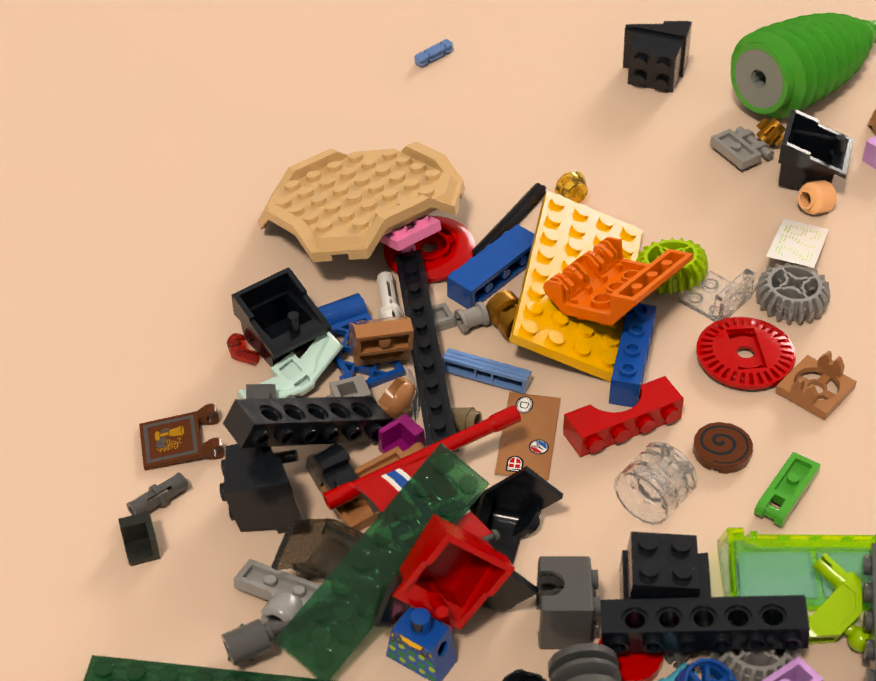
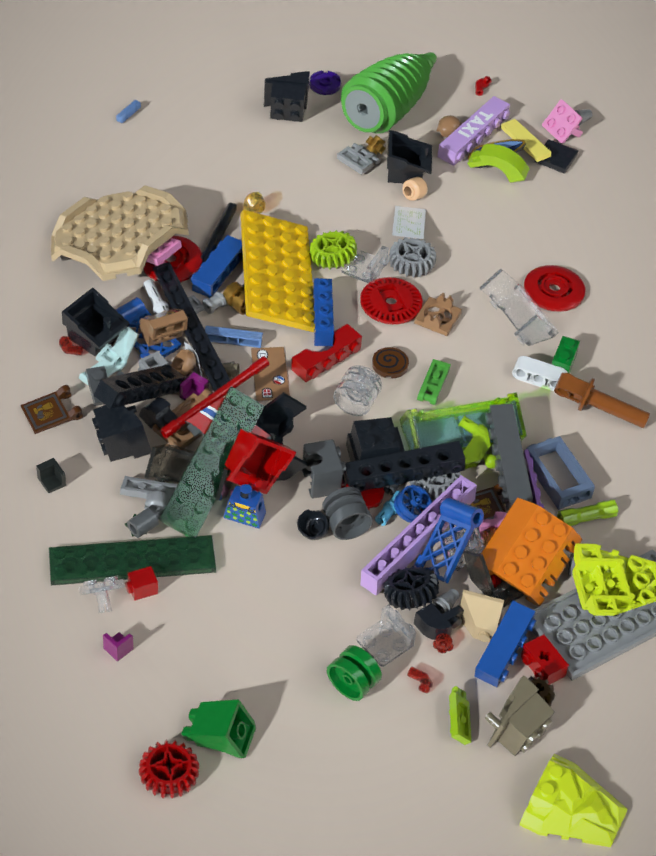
camera: 20 degrees left, 5 degrees up
(174, 486) = (59, 440): dark grey pin -> none
(606, 286) = (300, 270): orange slope -> none
(715, 46) = (325, 83): none -> dark purple tile

